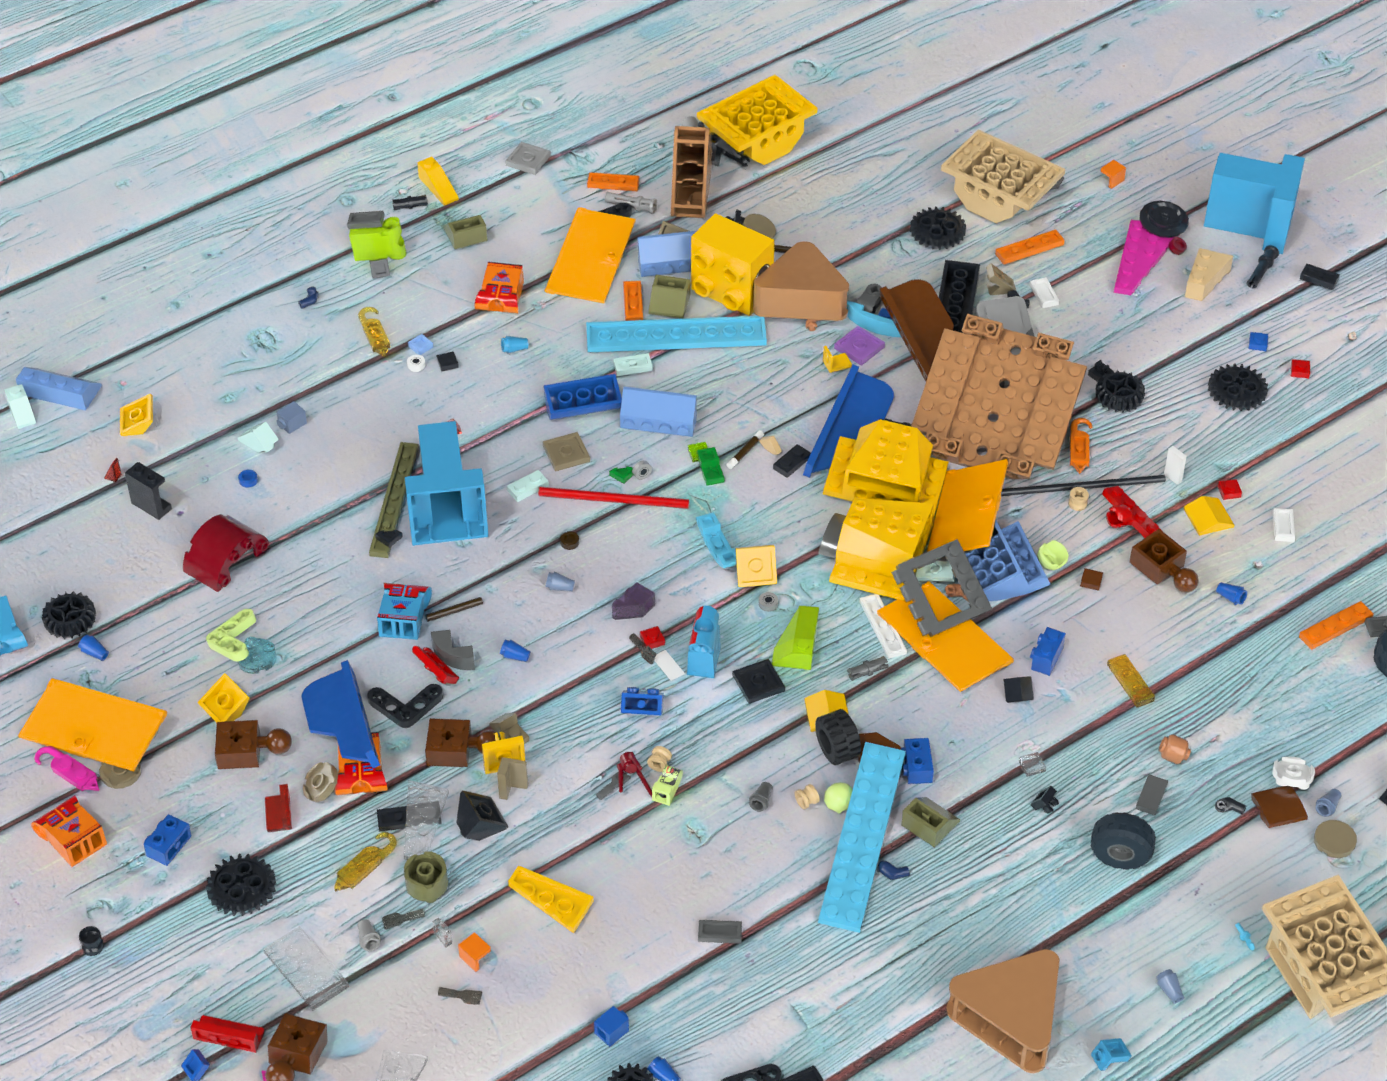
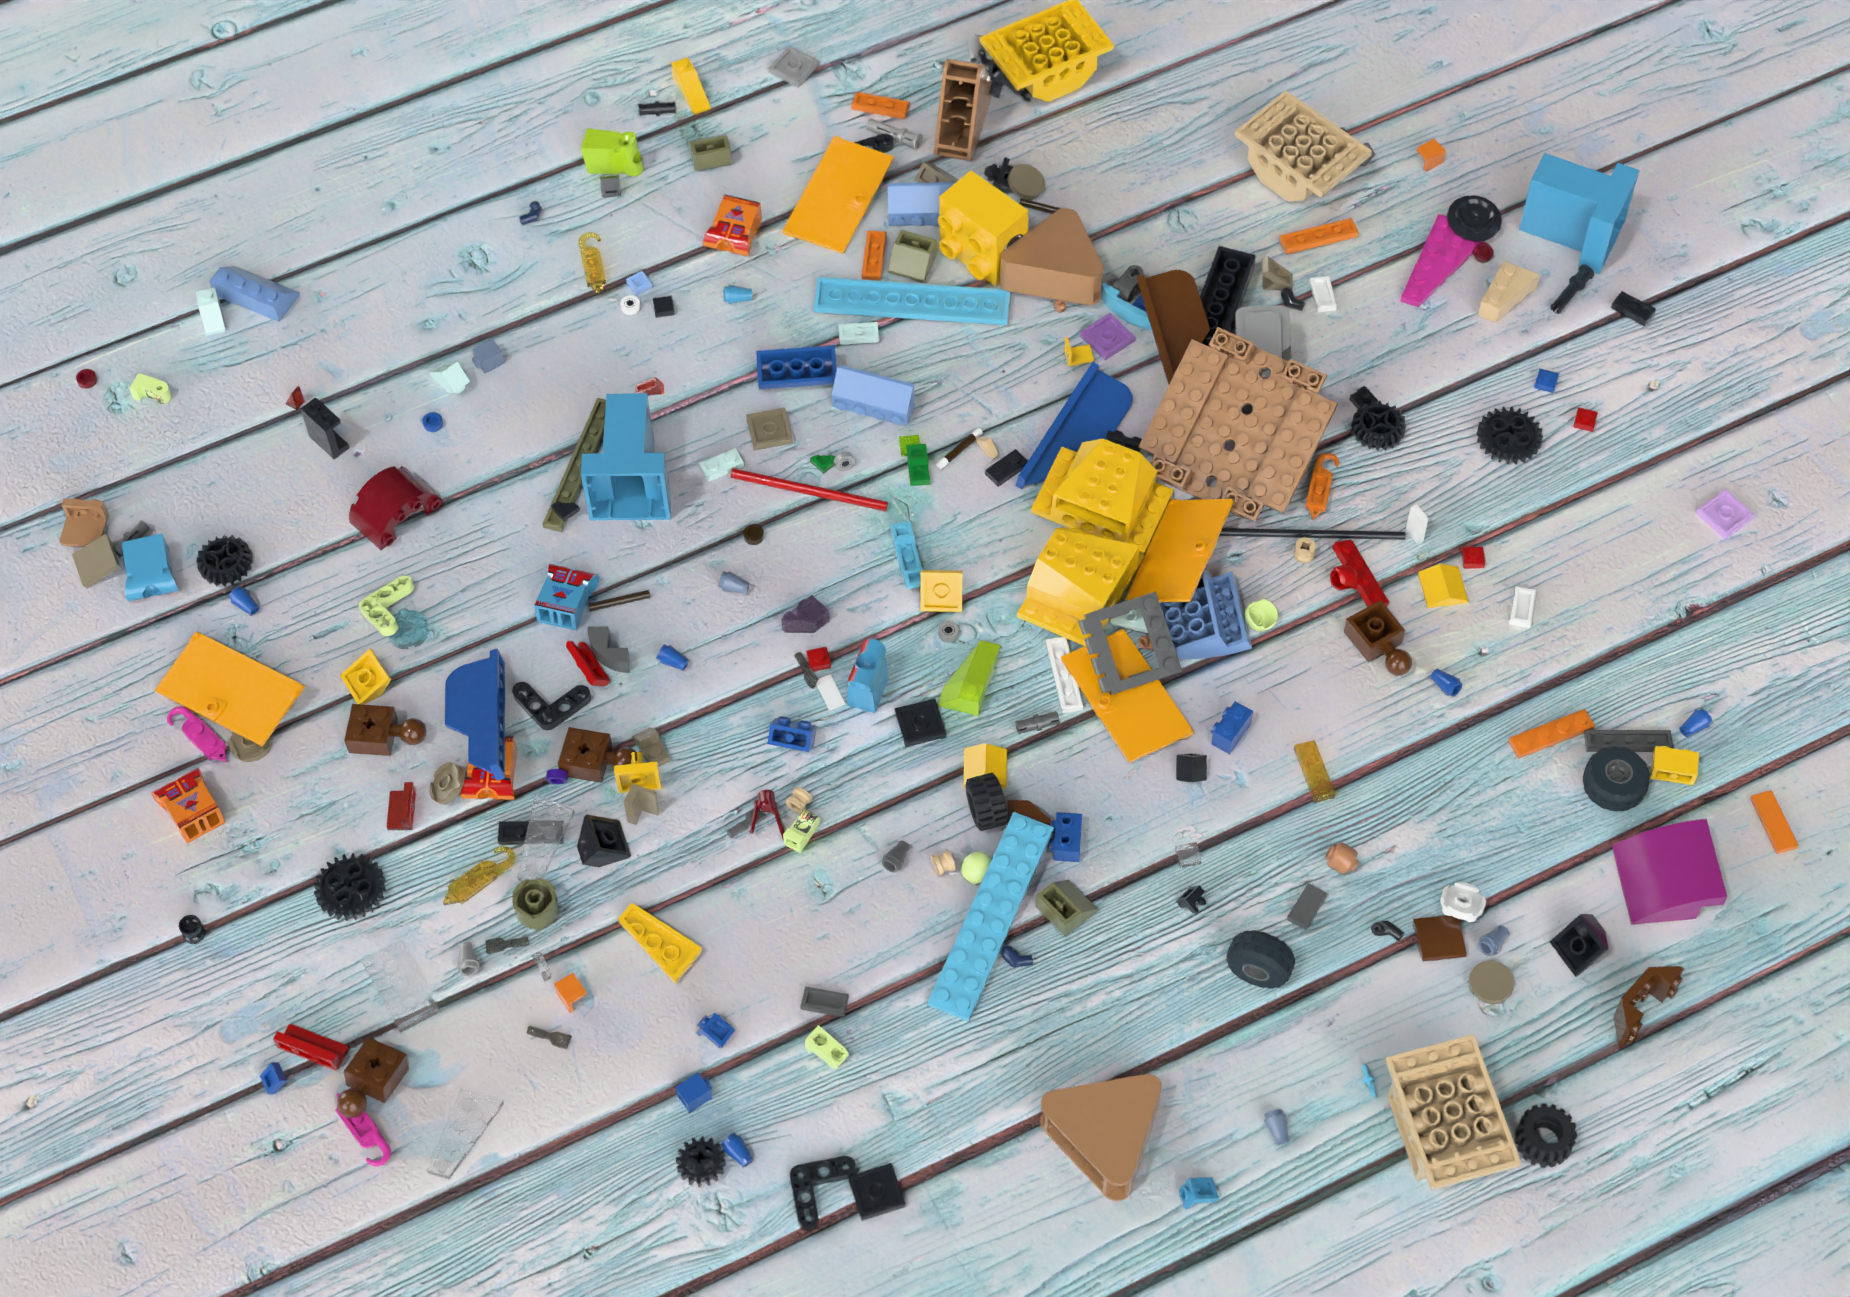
camera: 10 degrees right, 10 degrees up
(136, 416) = (328, 336): yellow slope -> none
(167, 839) = (284, 827): blue brick -> none
(365, 219) = (600, 132): dark grey tile -> none
(424, 765) = (556, 776): none -> dark purple tile
(621, 967) = (715, 1029): none -> blue bracket
(730, 970) = (826, 1047): none -> yellowish green leg
(831, 536) = (1027, 563): dark grey brick -> none
(937, 228) = (1222, 202): black gear -> none
(1091, 579) = (1298, 647): reddish brown tile -> none

